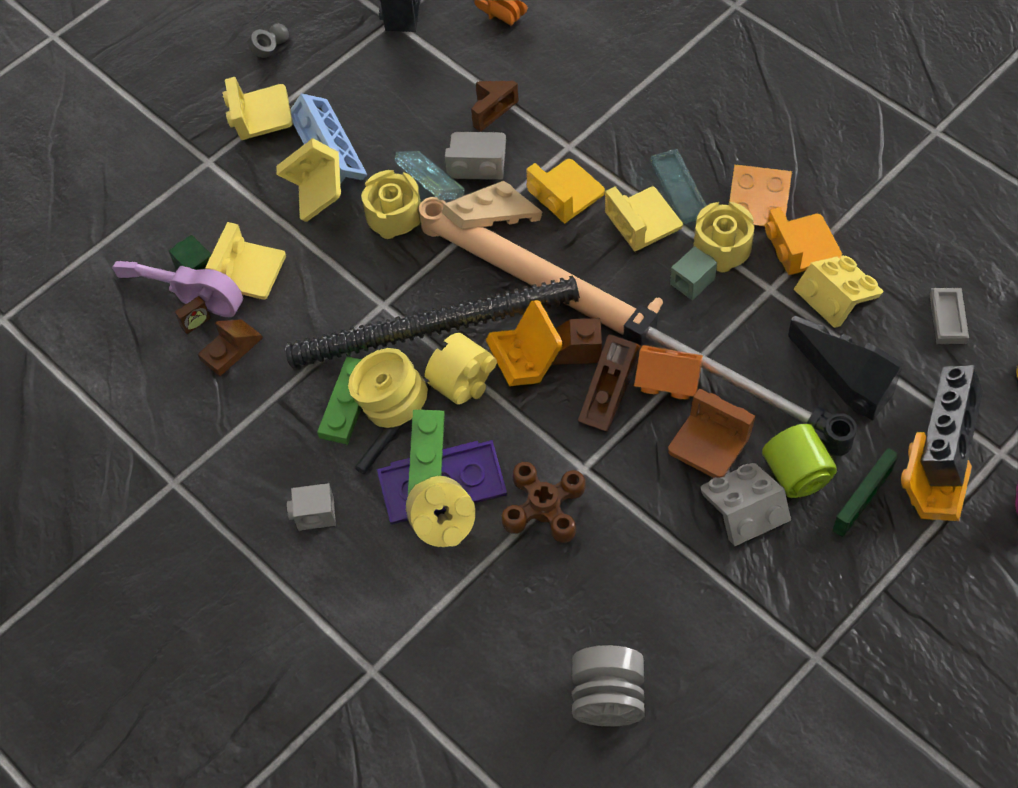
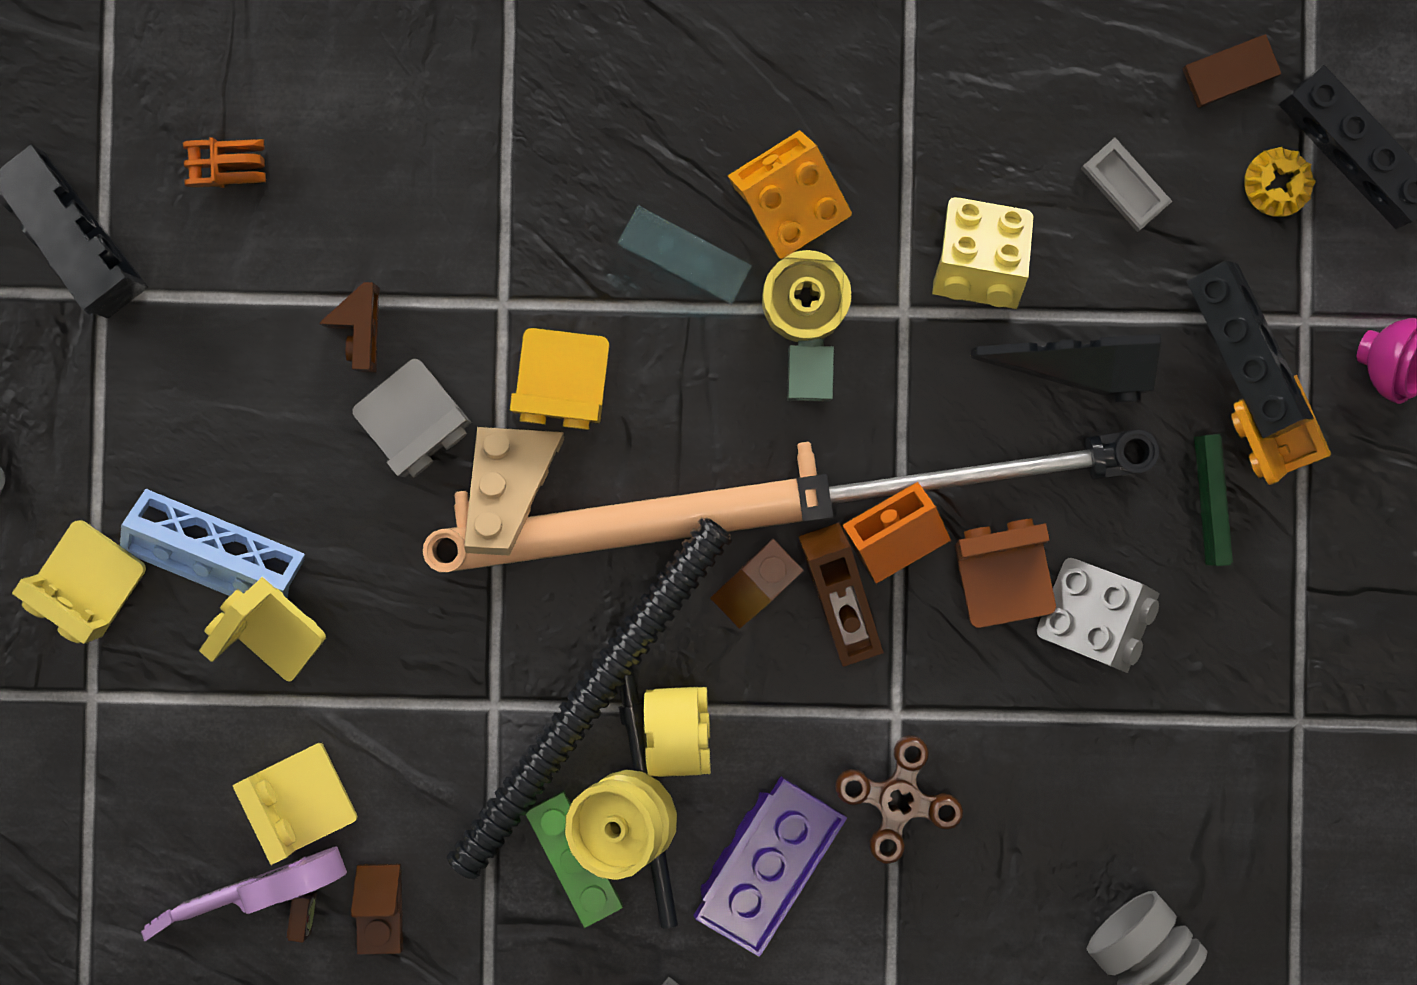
camera: 50 degrees left, 30 degrees up
(190, 254) = (226, 850): dark green brick -> none
(391, 203) = (364, 593): light yellow brick -> none
(426, 446) = (736, 863): bright green plate -> none
(429, 175) = (389, 502): clear light blue tile -> none
(449, 527) = (815, 916): light yellow brick -> none
(529, 349) = (717, 639): light orange bracket -> none
(641, 217) = (685, 339): light yellow bracket -> none
(799, 461) = (1126, 529): lime piece -> none
(800, 240) = (894, 221): light orange bracket -> none

